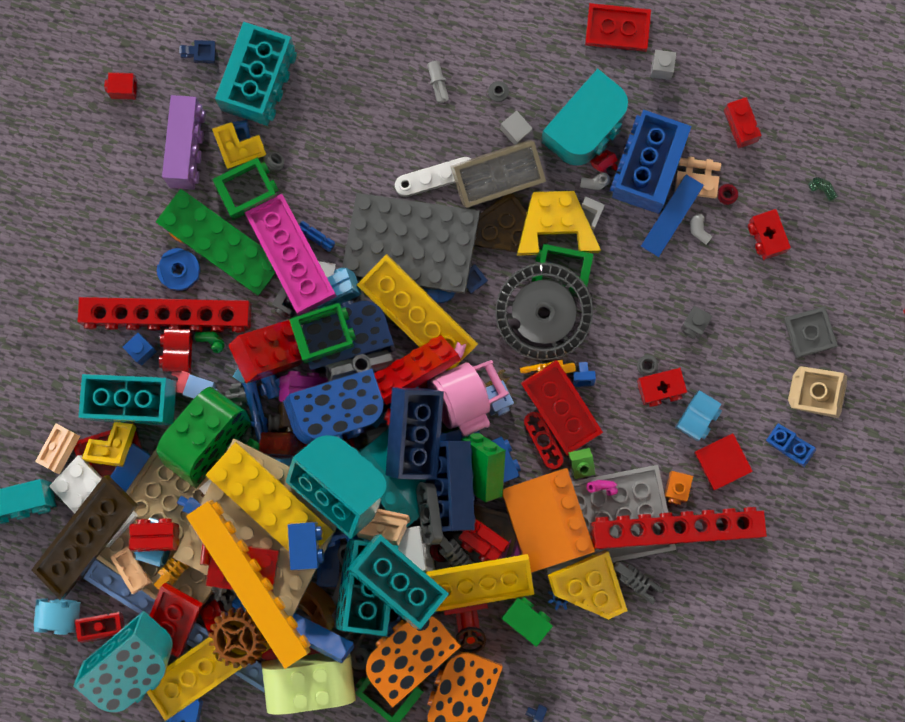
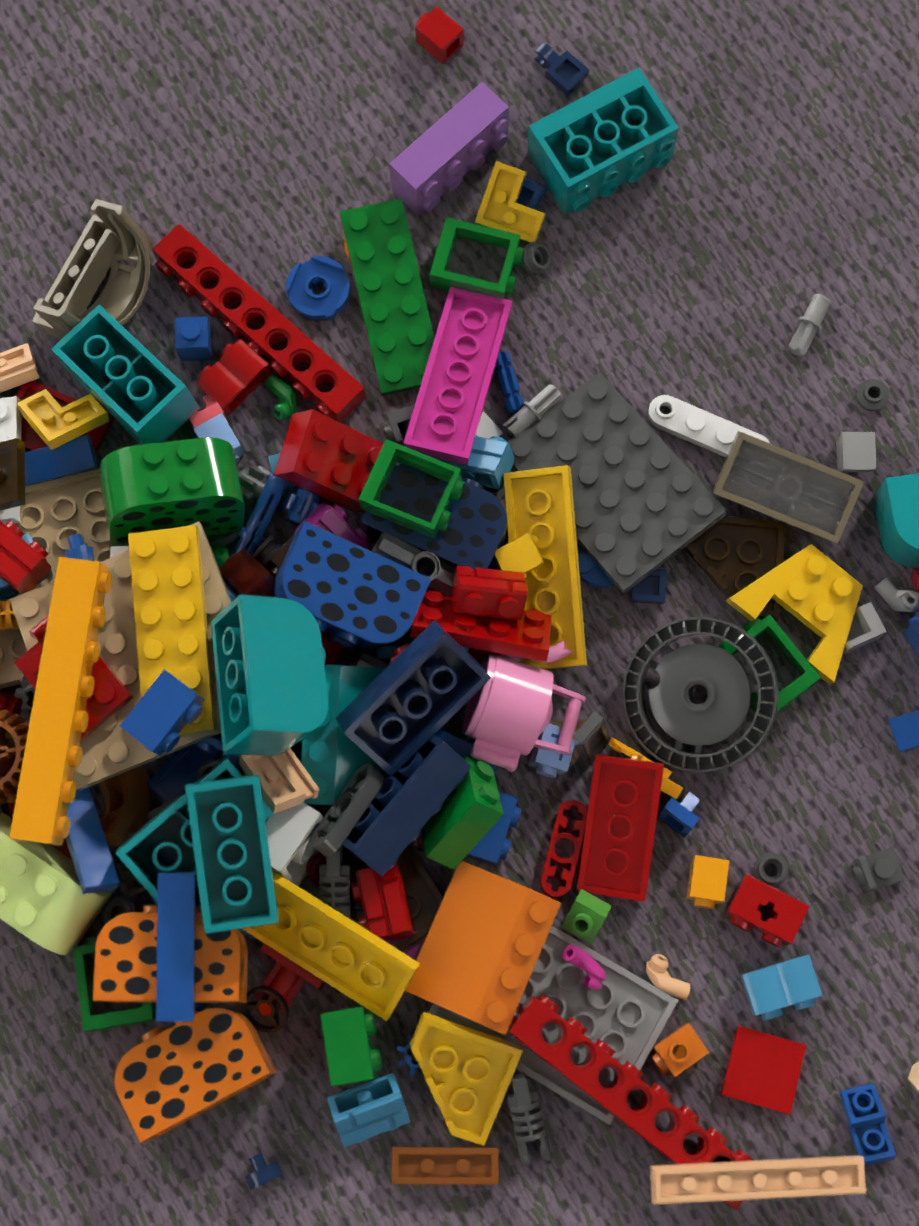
camera: 40 degrees right, 5 degrees down
(48, 341) = (105, 240): none -> dark tan piece
(341, 240) = (533, 410): none -> light grey axle
(402, 320) = (520, 555): none -> yellow panel
(404, 350) = (489, 593): none -> red brick
(409, 648) = (176, 947): none -> blue tile
(511, 376) = (591, 737): none -> dark grey tile
(561, 642) = (368, 1110): none -> dark azure brick
(617, 635) = (445, 1165): none -> dark orange plate
(623, 397) = (707, 881): none -> light orange brick
(641, 461) = (659, 976): none -> light nougat arm
(764, 514) = (757, 1179): none -> light nougat tile

